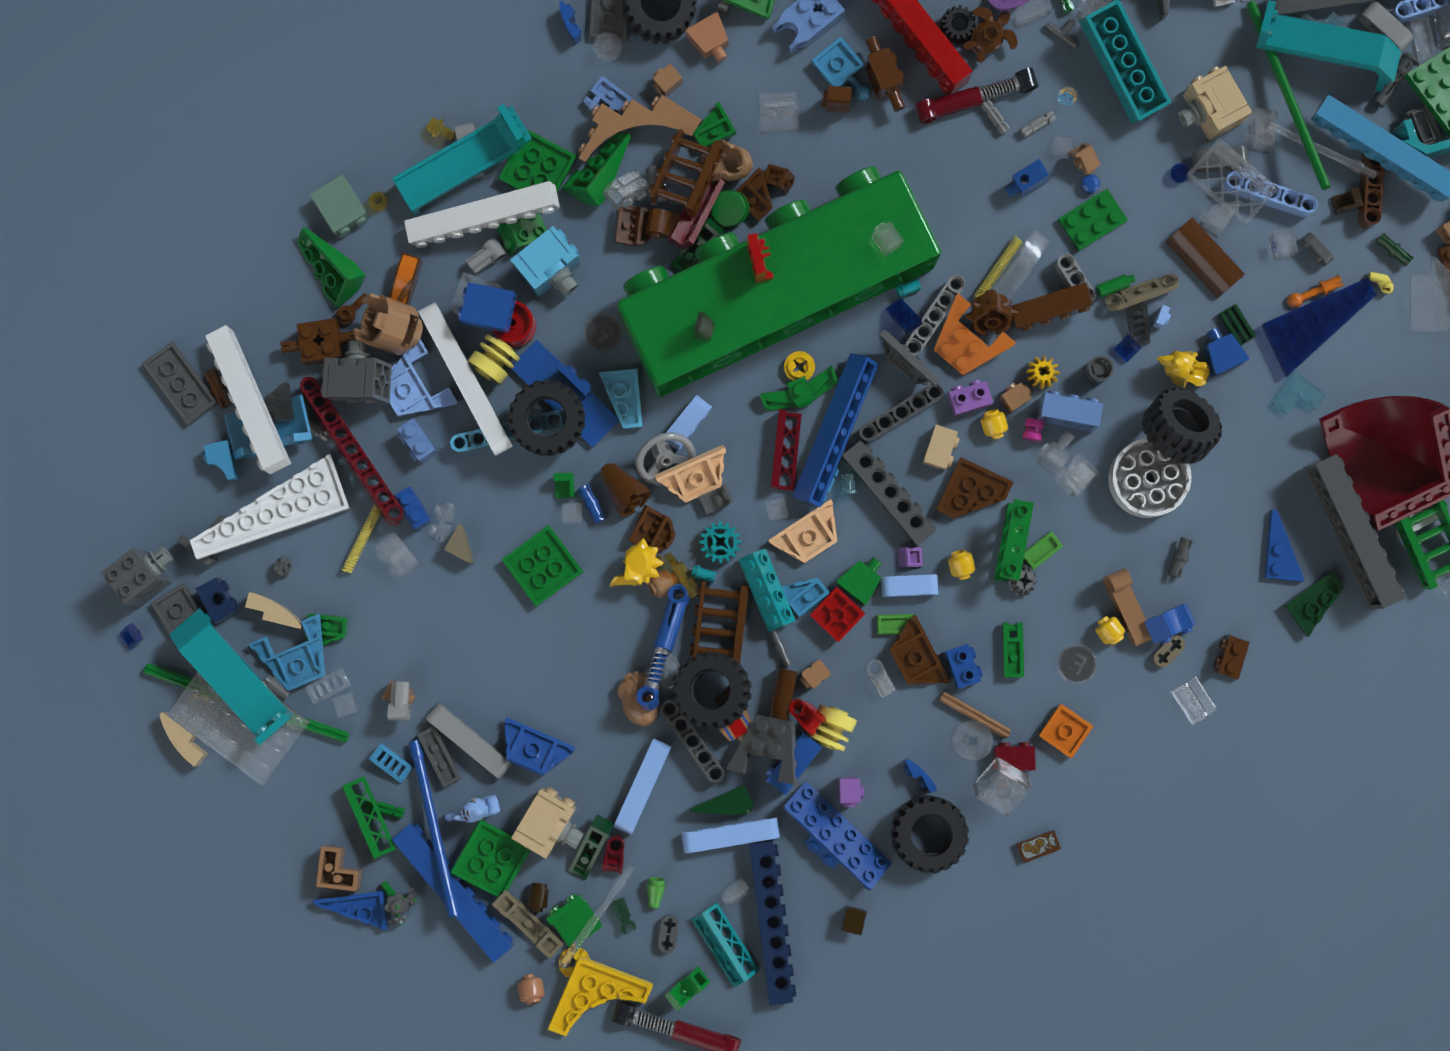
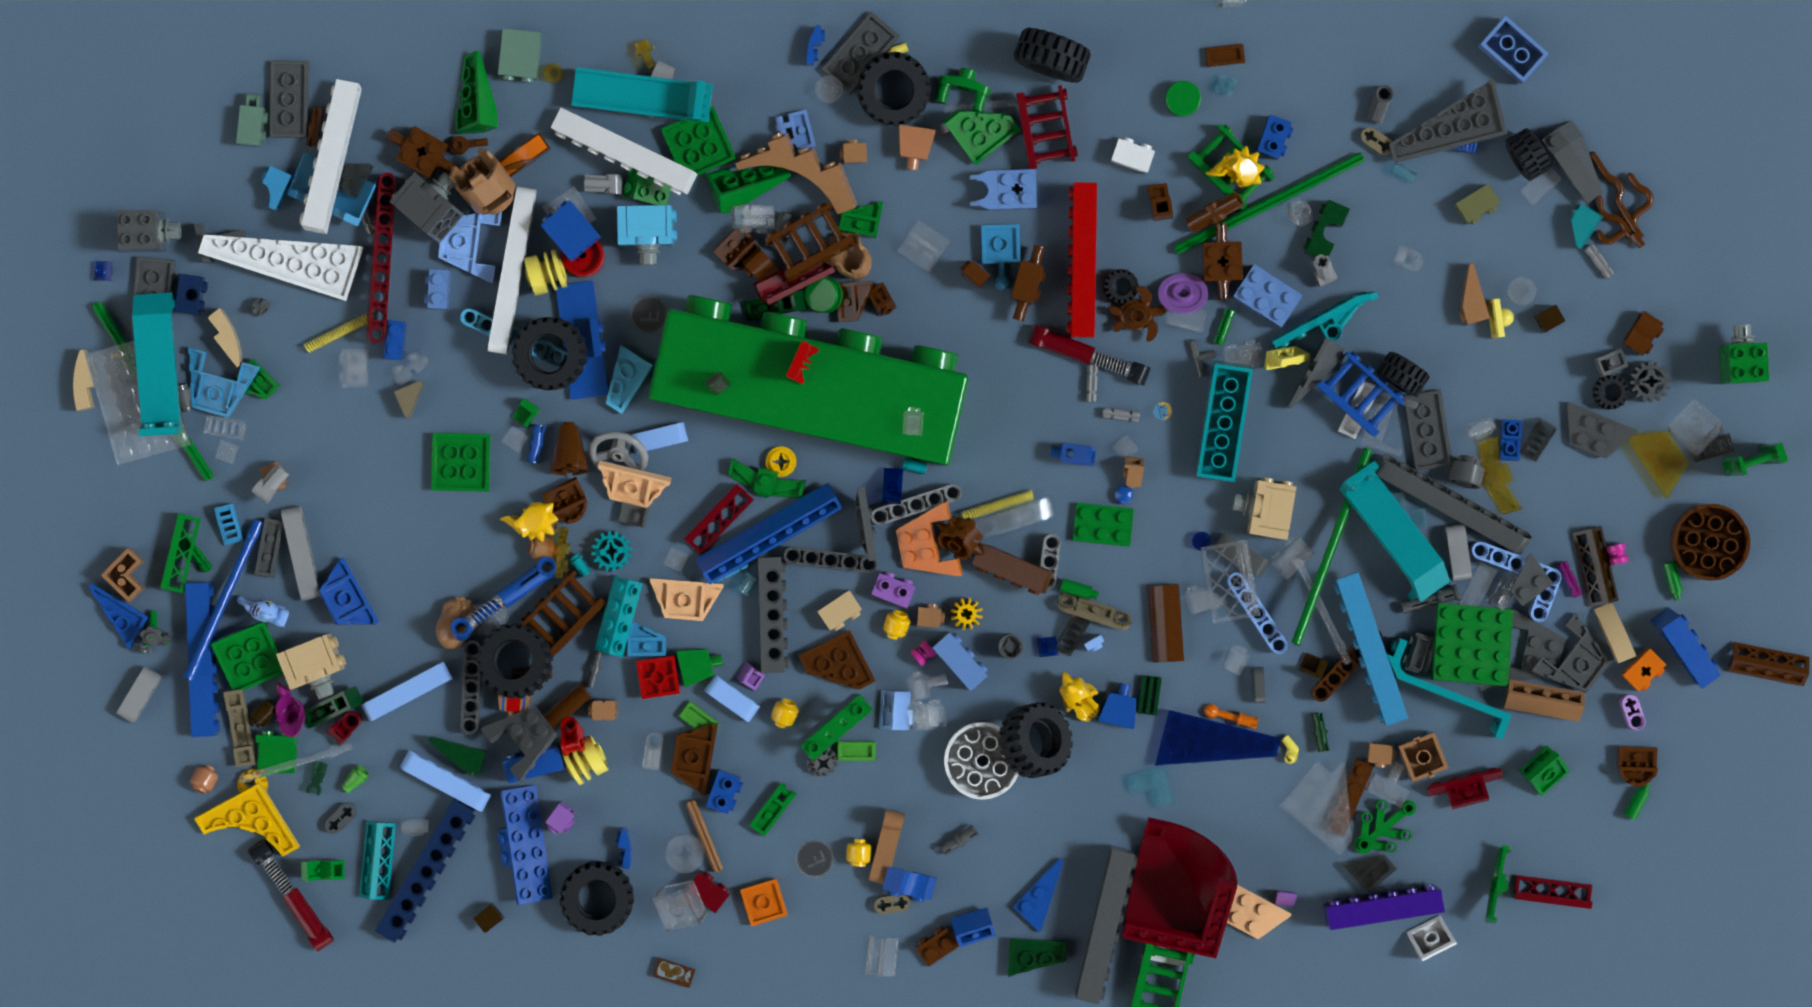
camera: 40 degrees right, 5 degrees up
(163, 424) = (251, 122): none -> sand green brick
(424, 961) = (139, 695): none -> light grey beam
(559, 878) = (289, 712): none -> magenta hair
(1046, 494) = (893, 710): none -> light blue panel
(1249, 618) = (973, 927): none -> blue brick

